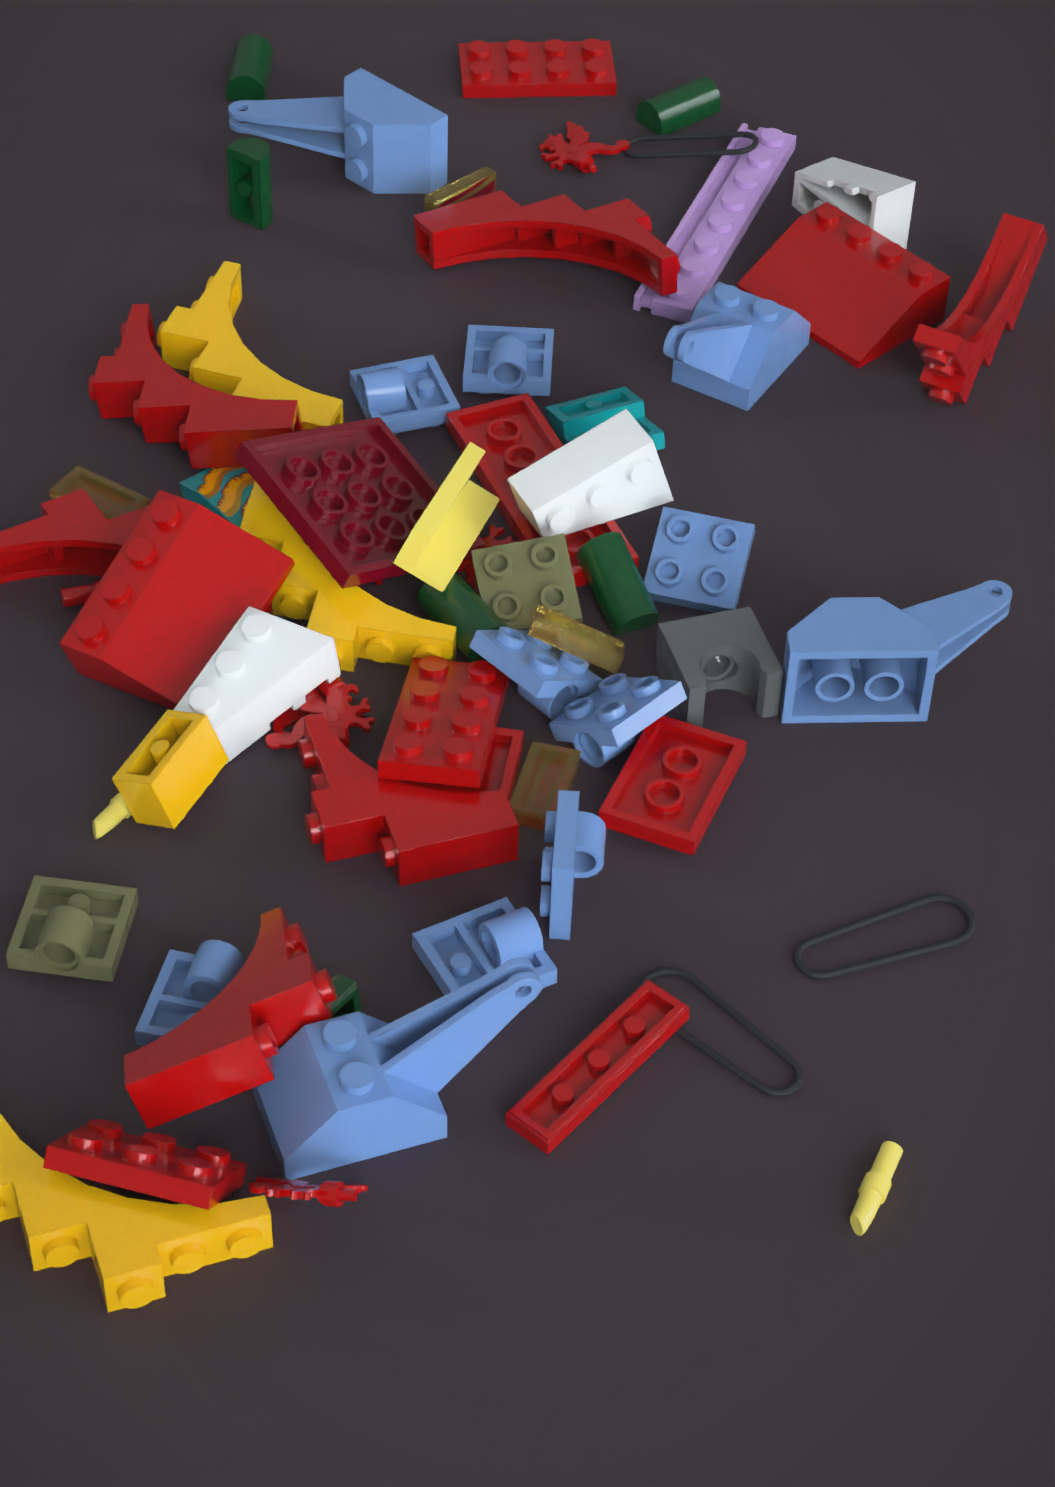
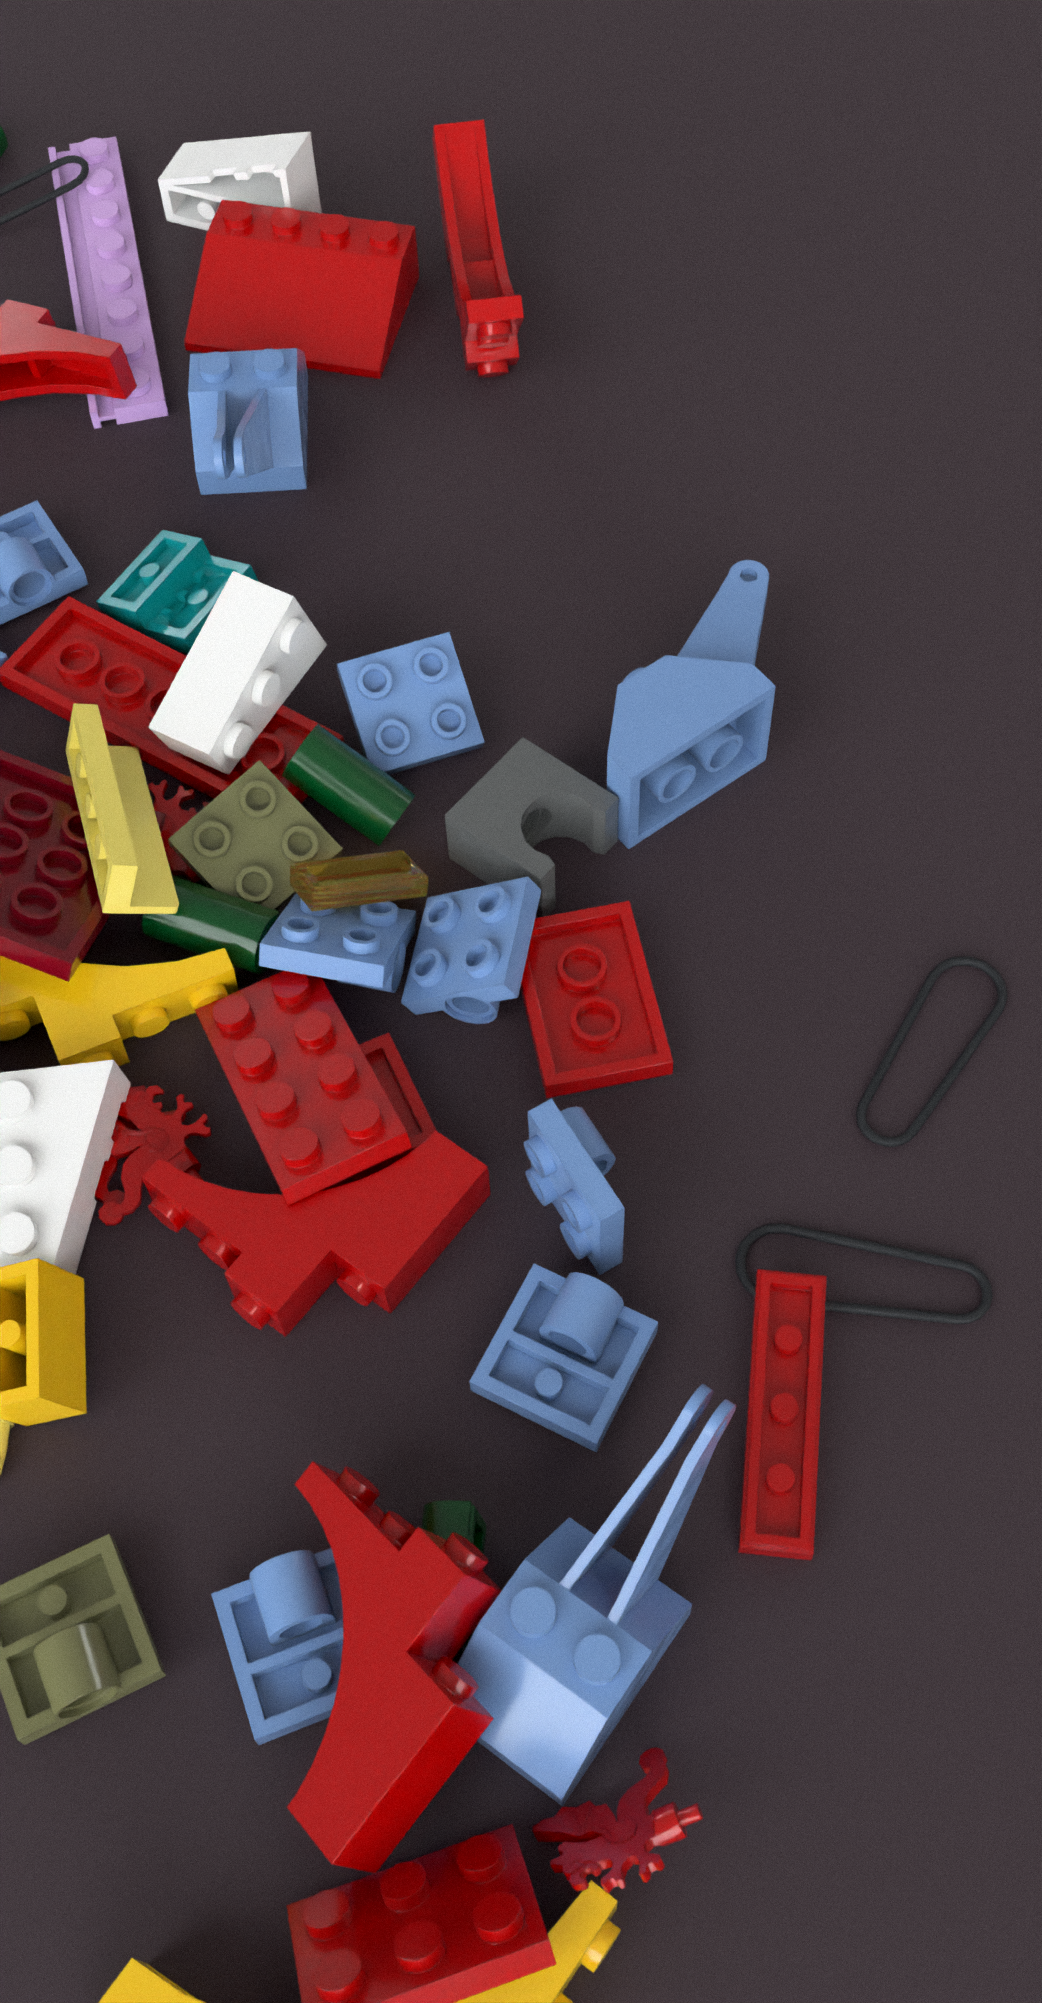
camera: 30 degrees left, 15 degrees up
(542, 776) = (453, 1083): clear yellow tile -> none

